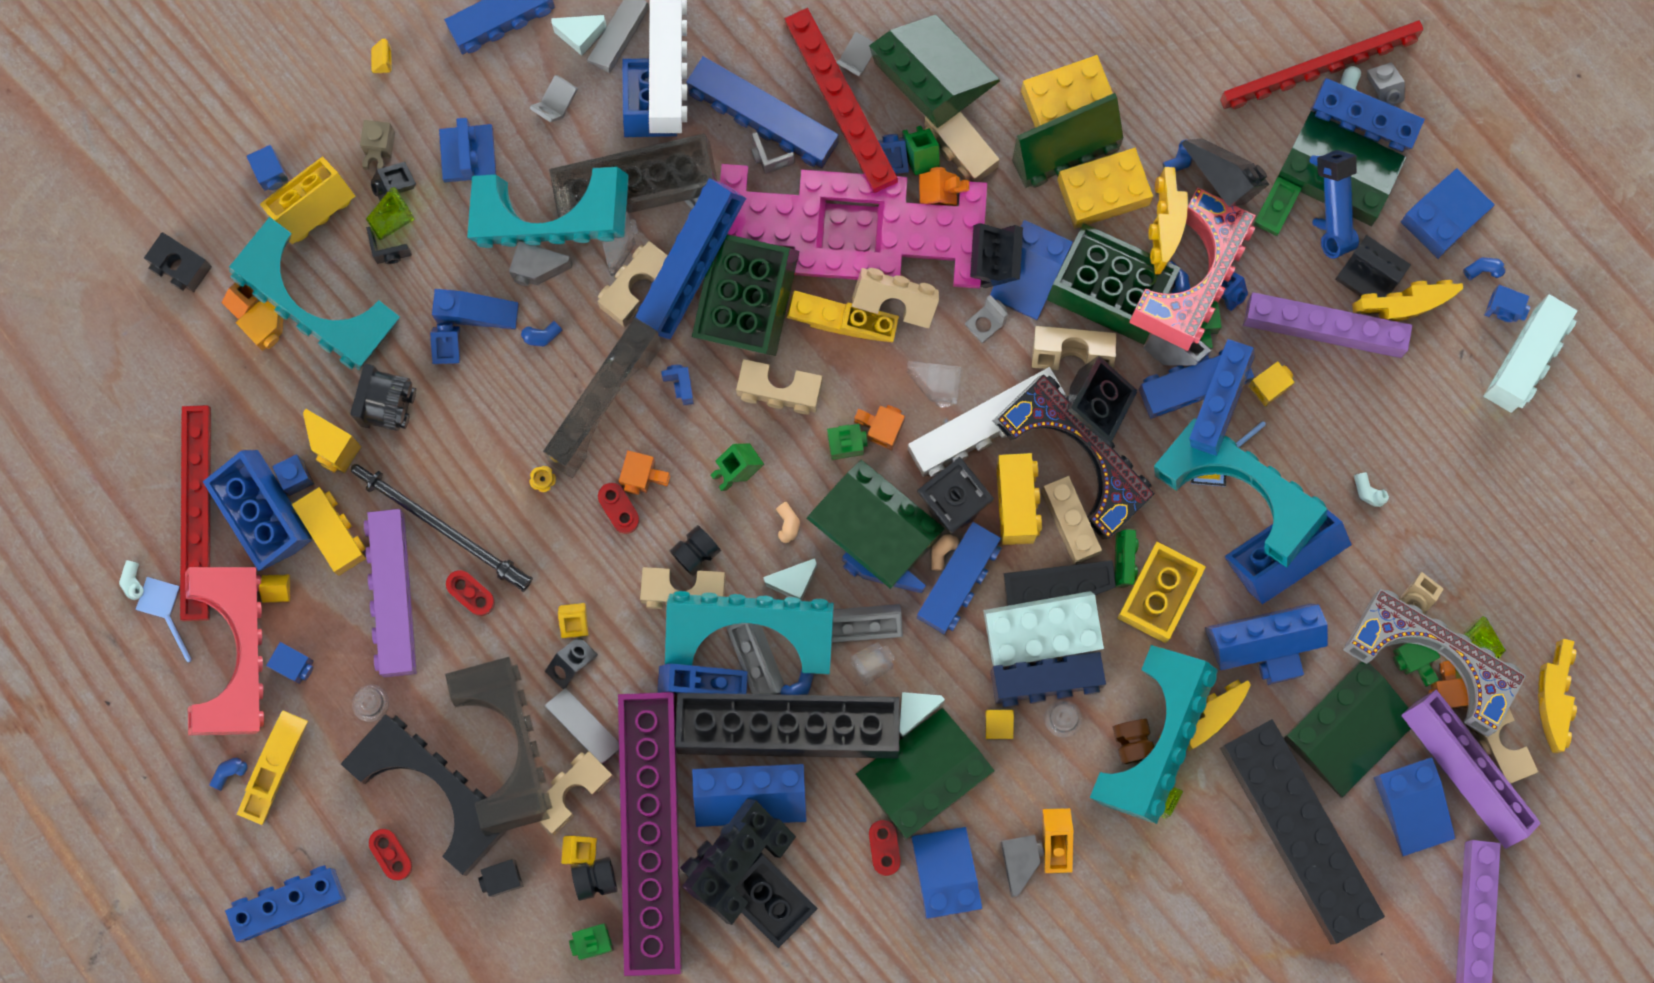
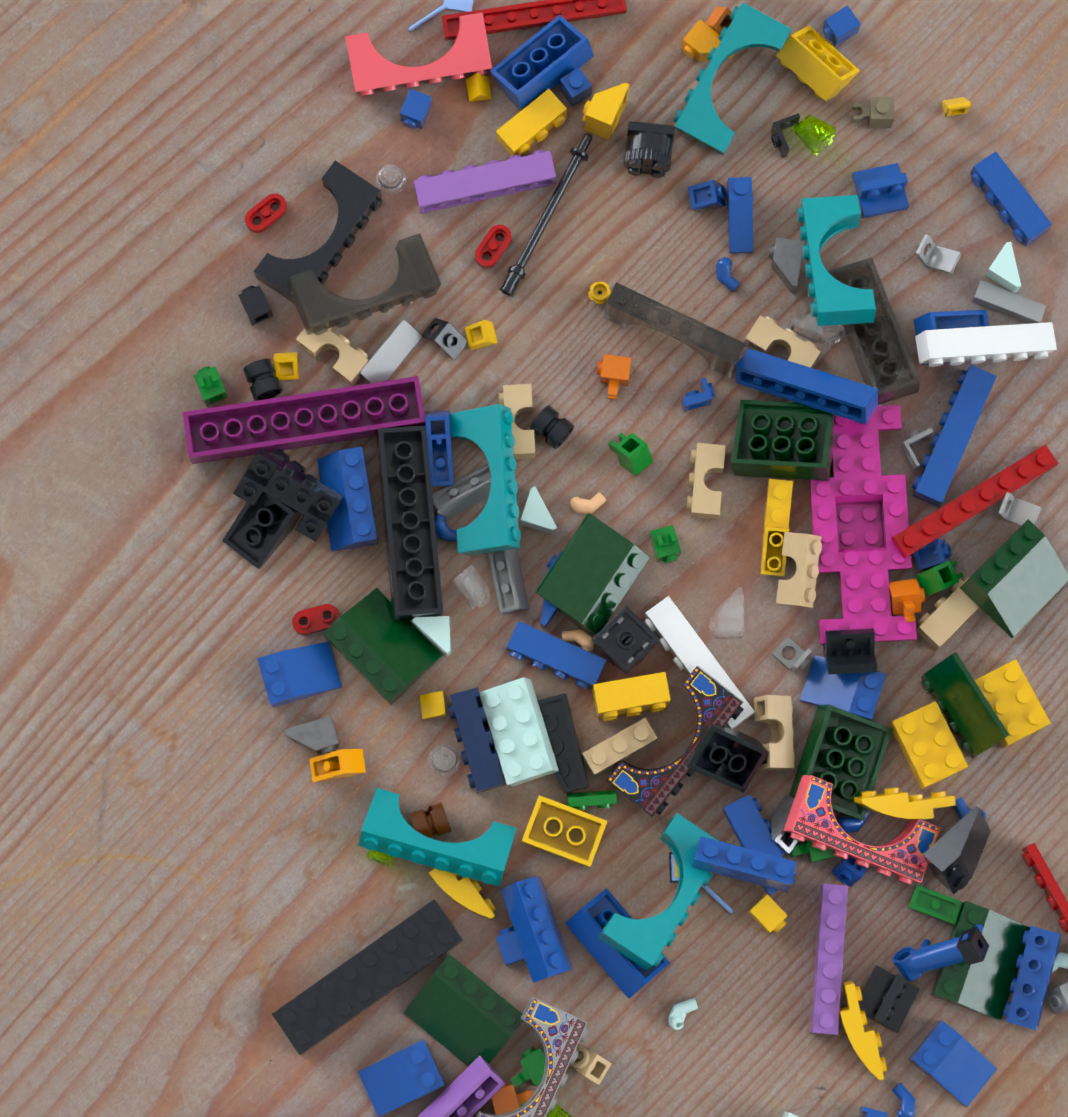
camera: 80 degrees right, 0 degrees up
(226, 769) = (322, 72): blue arm -> none
(272, 767) = (327, 106): yellow slope -> none
(286, 904) = (215, 135): blue brick -> none
(392, 176) = (846, 130): black bracket -> none
(619, 506) = (583, 359): red plate -> none
(883, 427) = (683, 575): orange brick -> none

